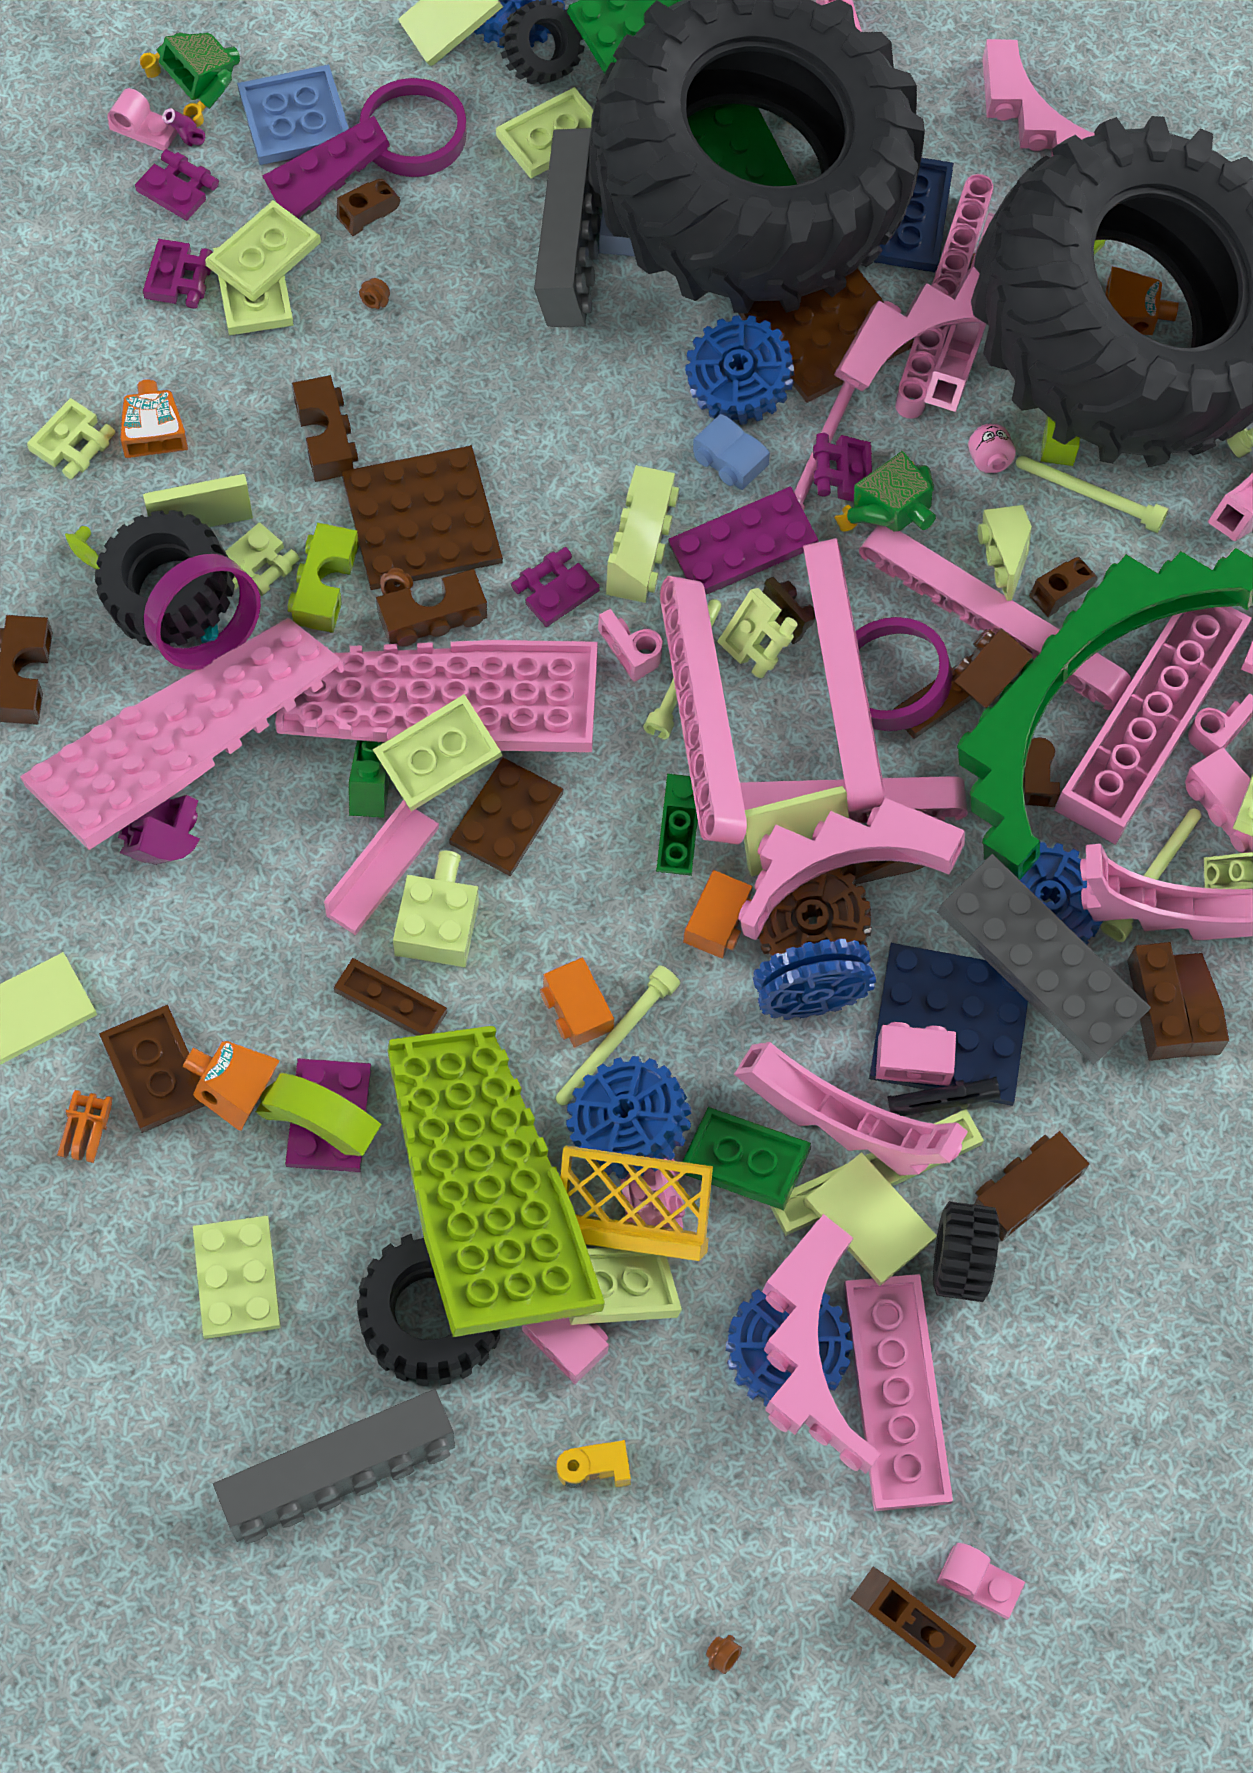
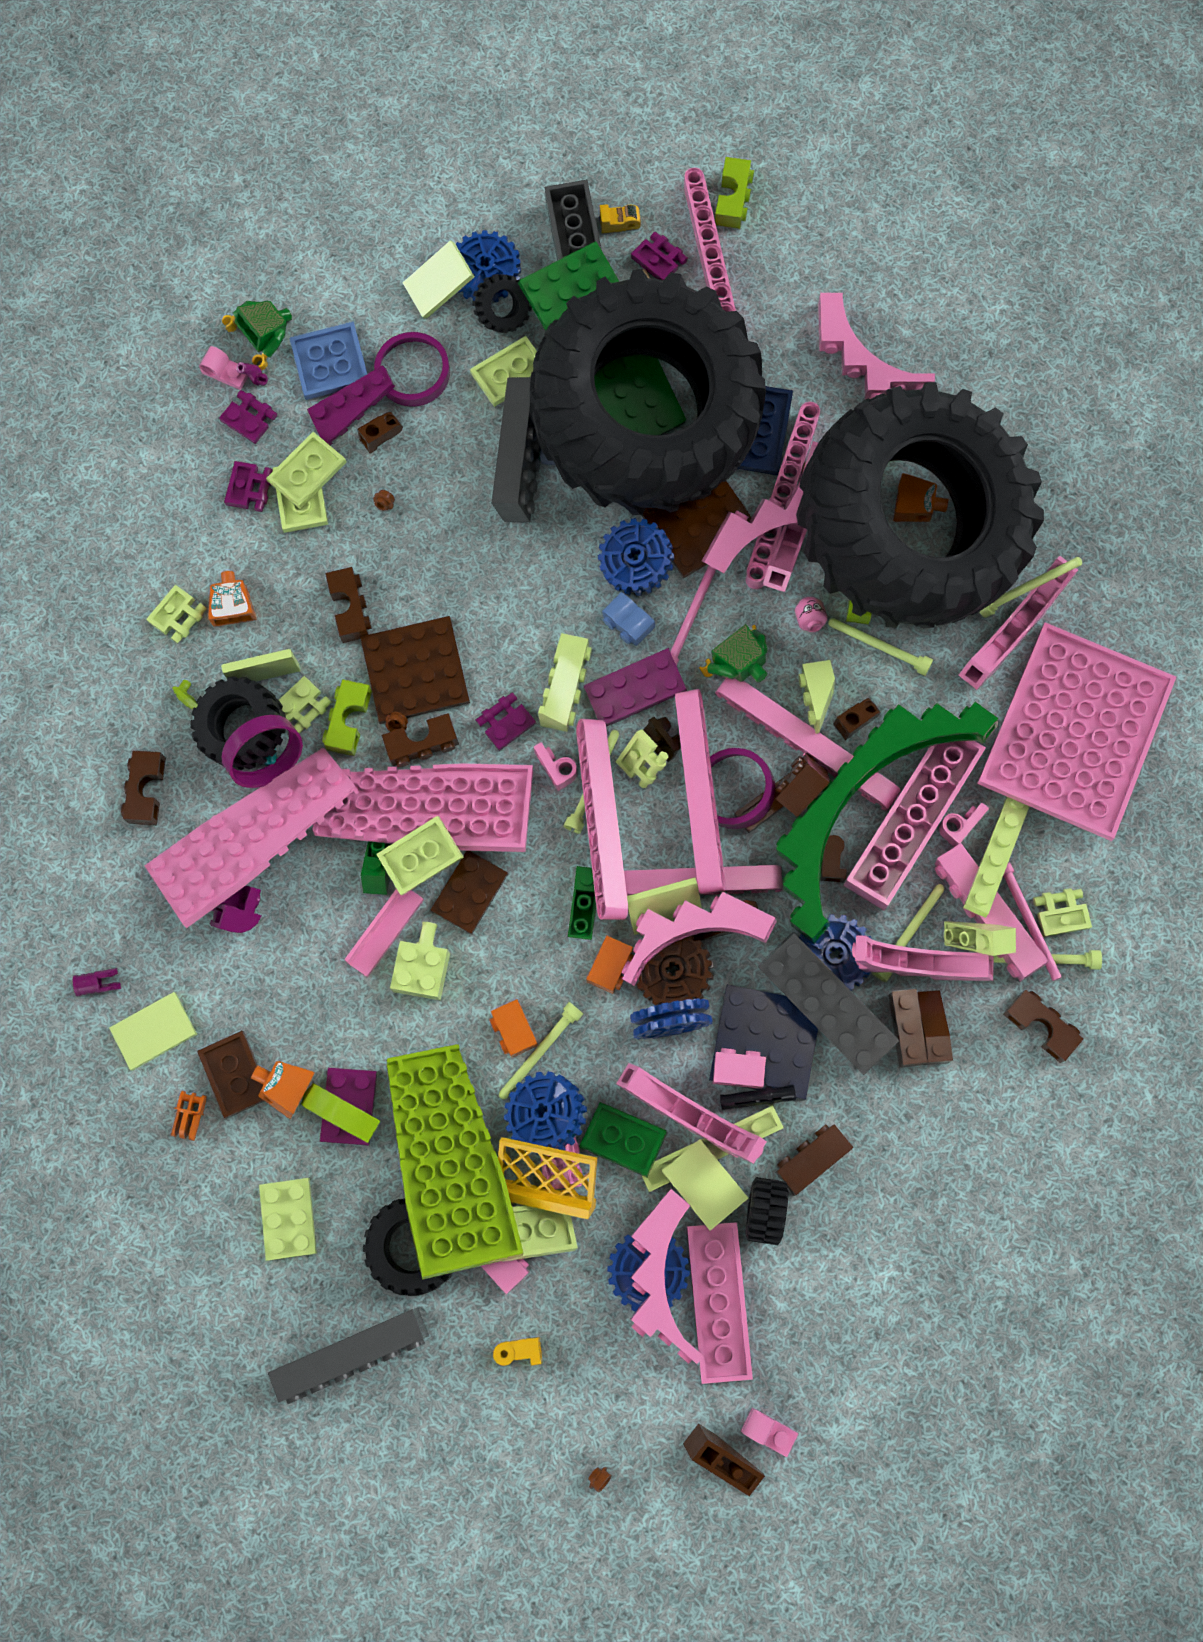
camera: 10 degrees right, 10 degrees up
(390, 999) = (389, 1025): reddish brown plate -> none
(852, 462) = (713, 629): magenta plate -> none

